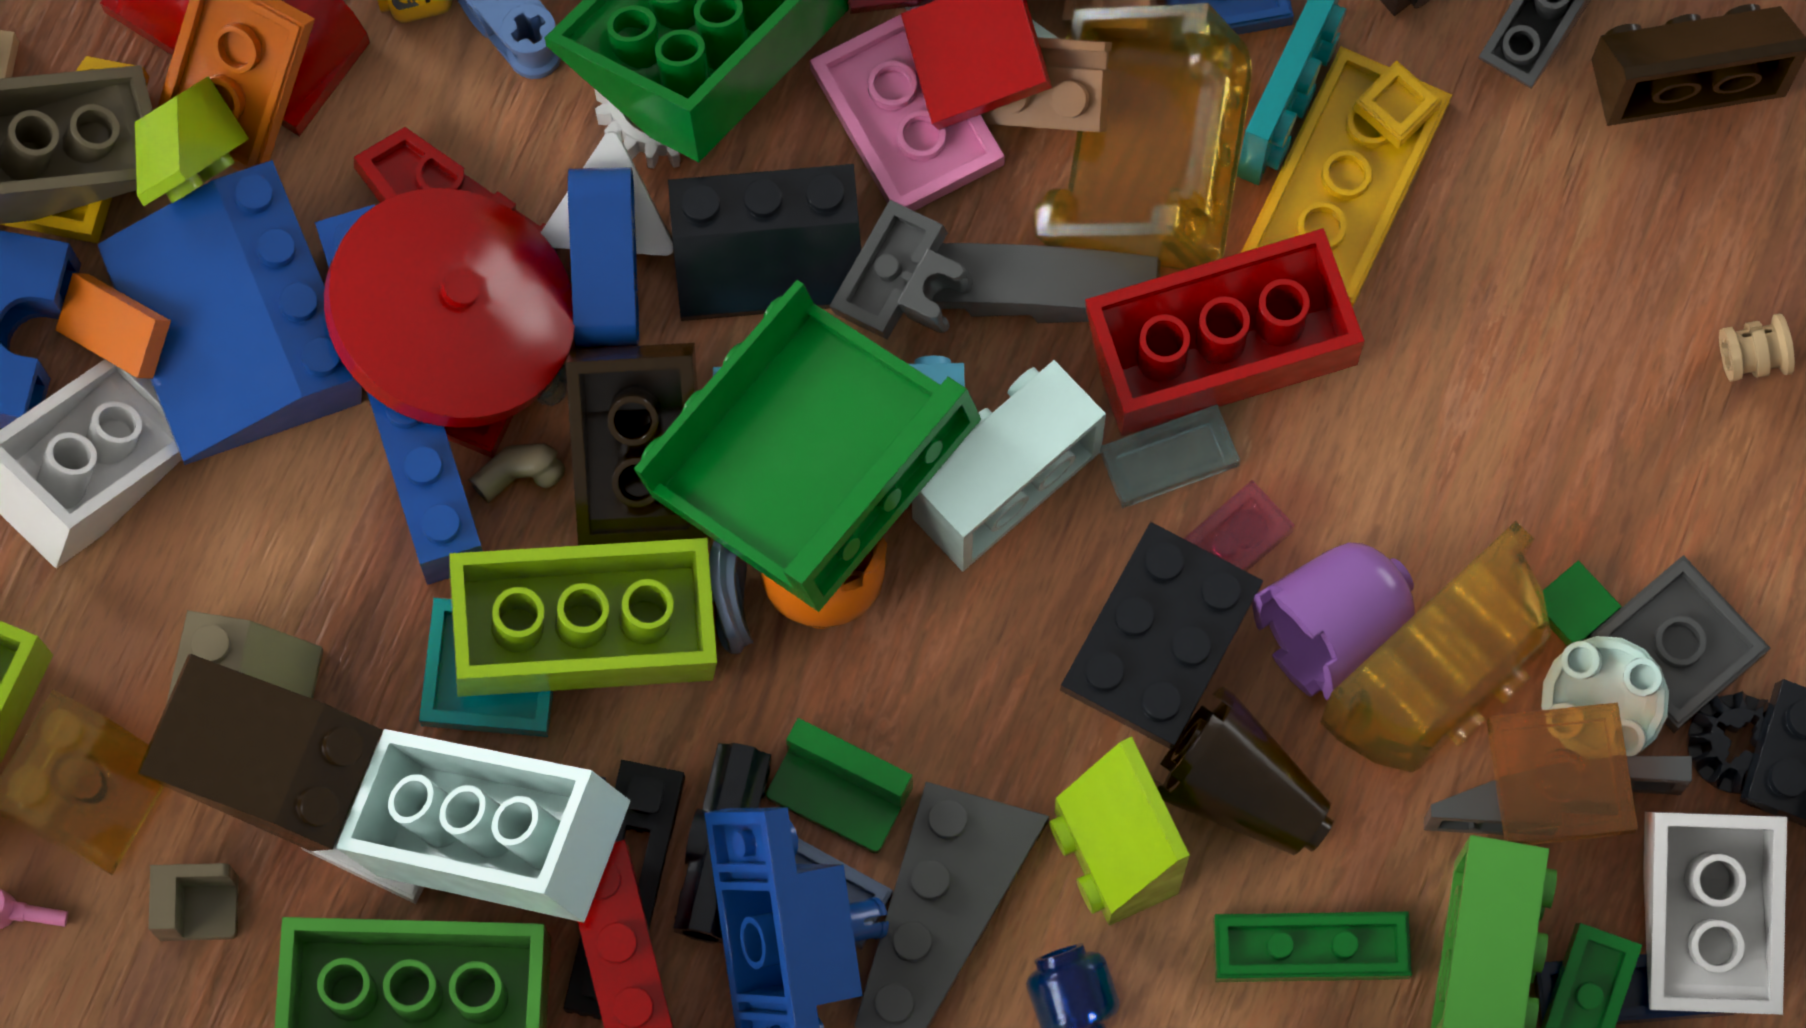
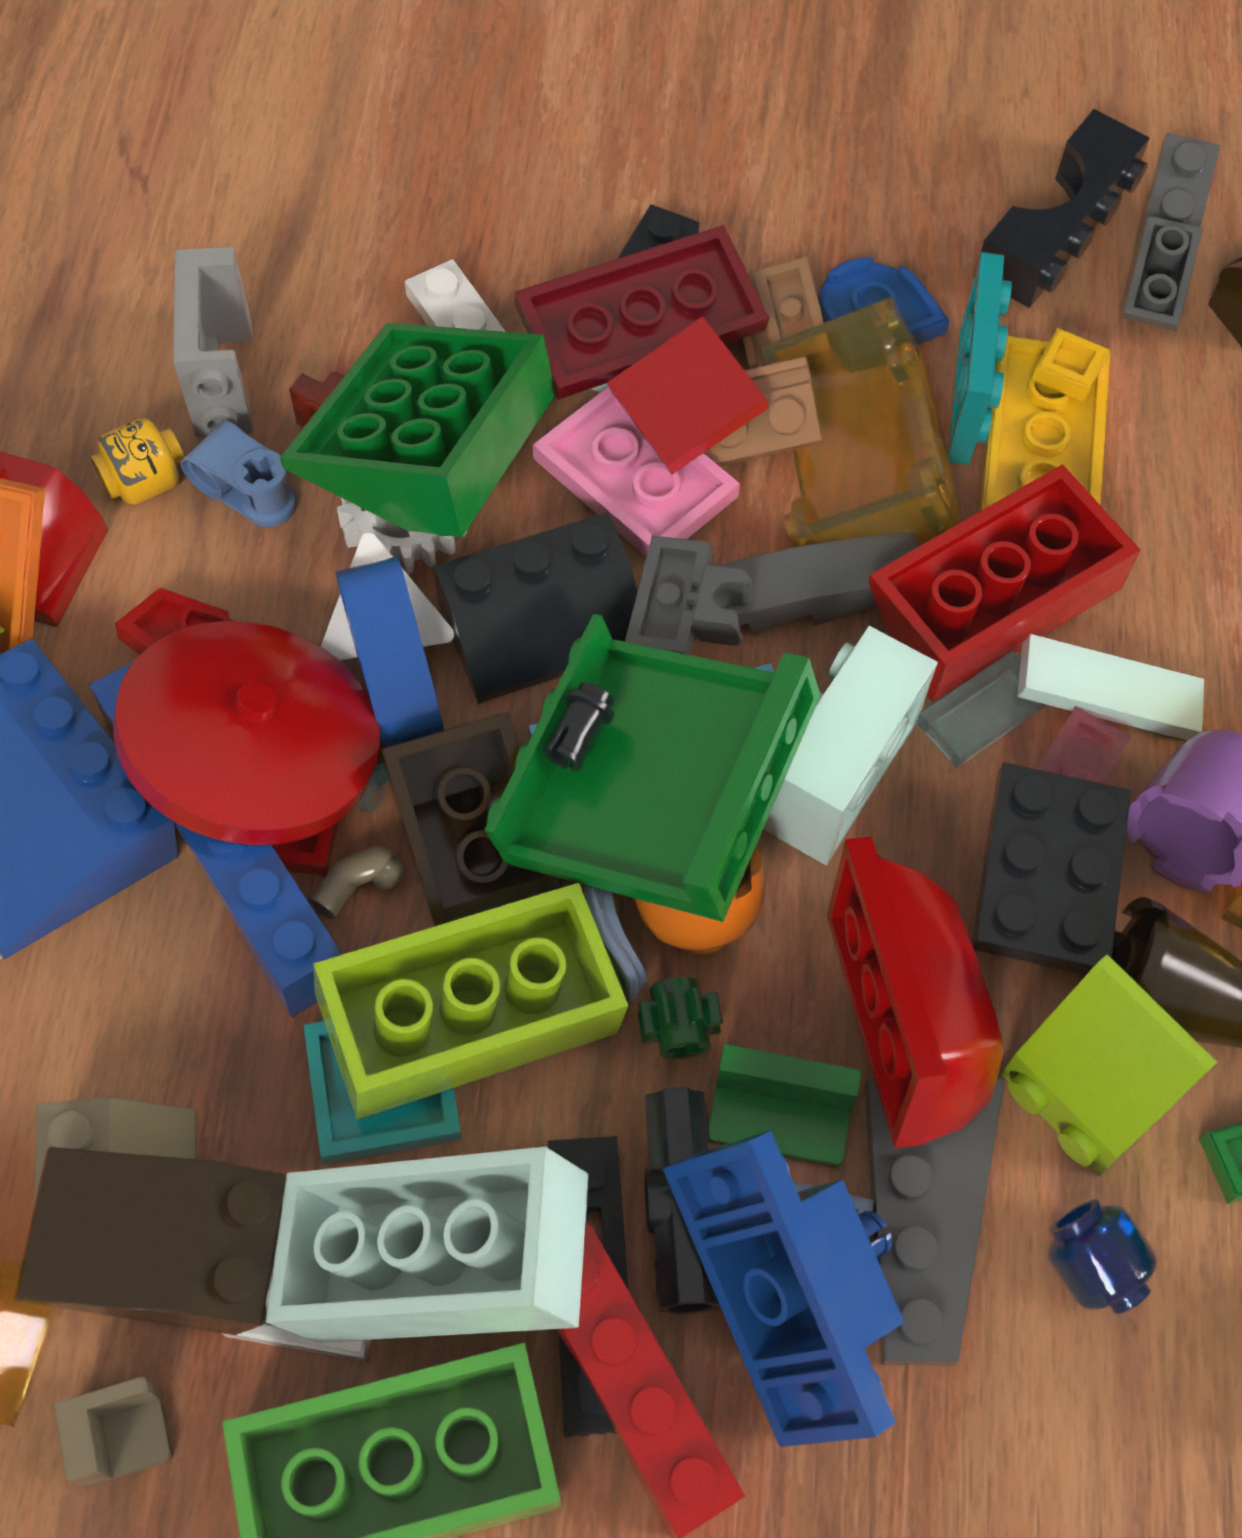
camera: 20 degrees left, 10 degrees down
(750, 389) = (586, 713): none -> black pin
(770, 682) = (680, 1017): none -> dark green gear
(986, 722) = (914, 995): none -> red windscreen
(1298, 469) = (1111, 687): none -> light aqua tile

